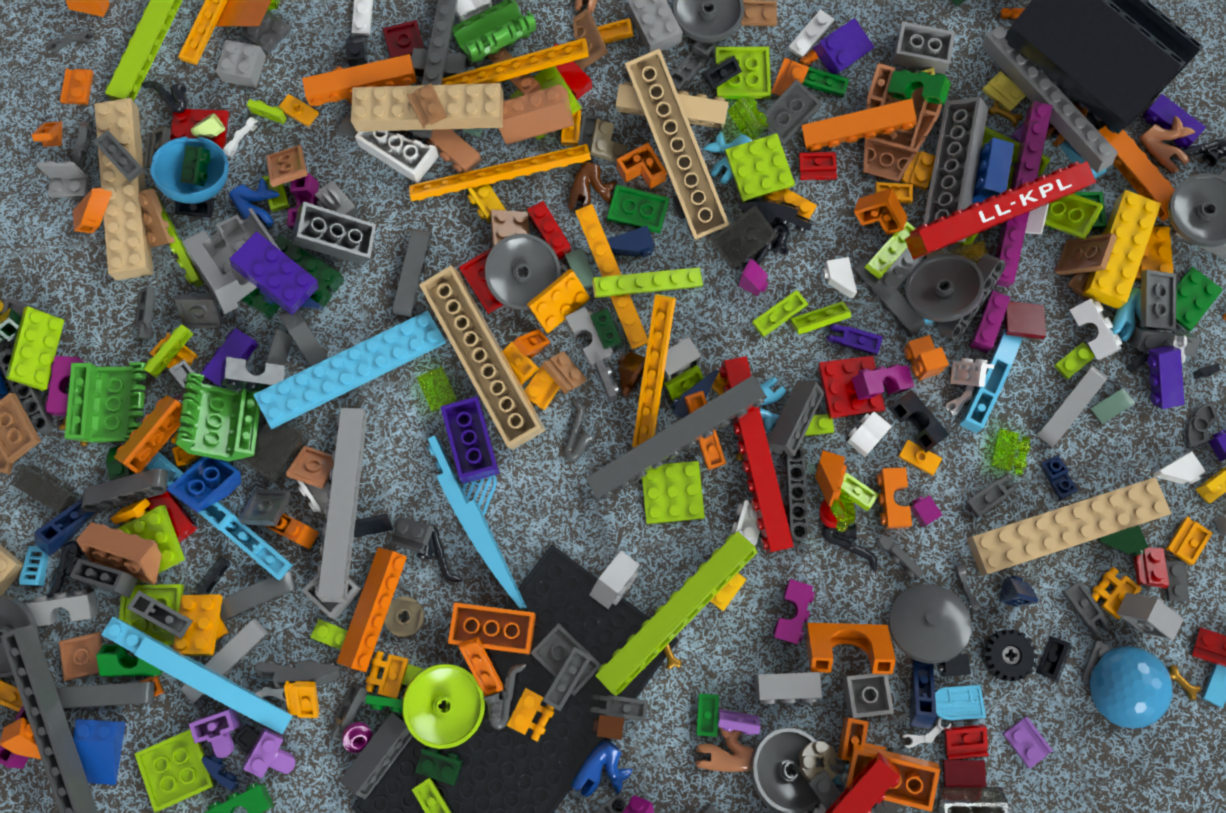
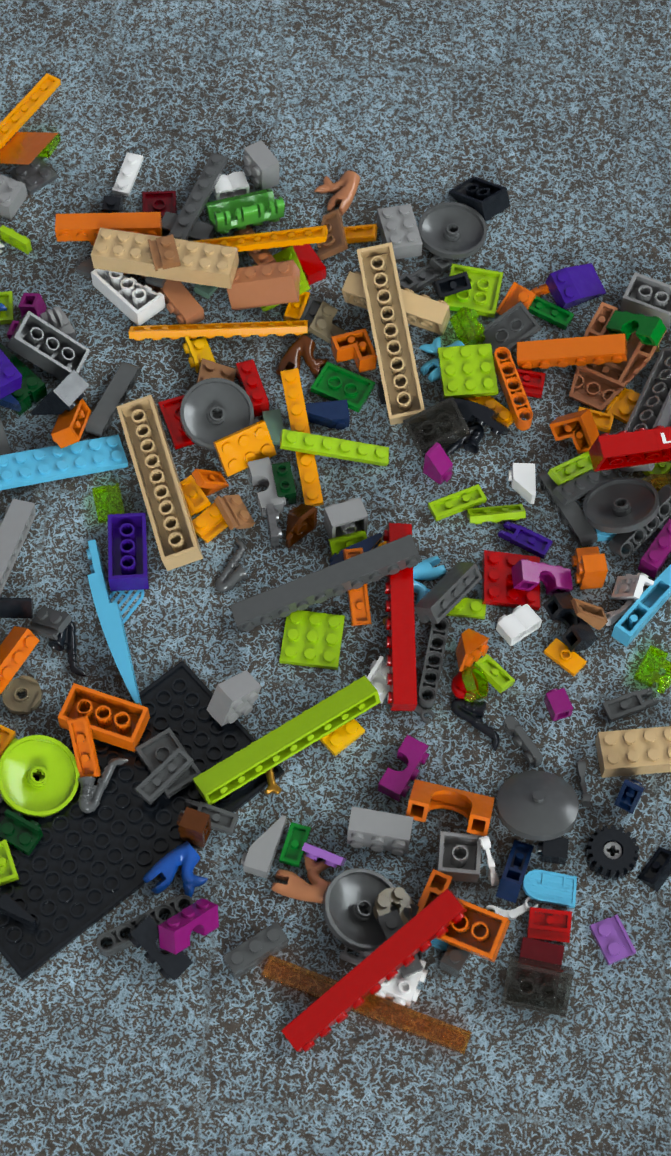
camera: 10 degrees right, 15 degrees down
(286, 165) = (20, 285): nougat tile -> none
(298, 110) = (45, 245): light orange plate -> none
(361, 285) = (62, 396): none -> slope
(378, 312) = (71, 424): none -> orange brick
(525, 712) = (115, 803): light orange plate -> none
(654, 368) = (320, 513): light orange plate -> none
(679, 730) = (263, 850): none -> light grey slope
(759, 13) = (501, 244): medium nougat plate -> none
(809, 169) = (512, 395): none -> orange beam
(811, 34) = (540, 274): white plate -> none
(893, 515) = (531, 671): orange arch -> none
(894, 683) = (492, 875): none -> white piece
(937, 409) = (590, 613): none -> medium nougat slope

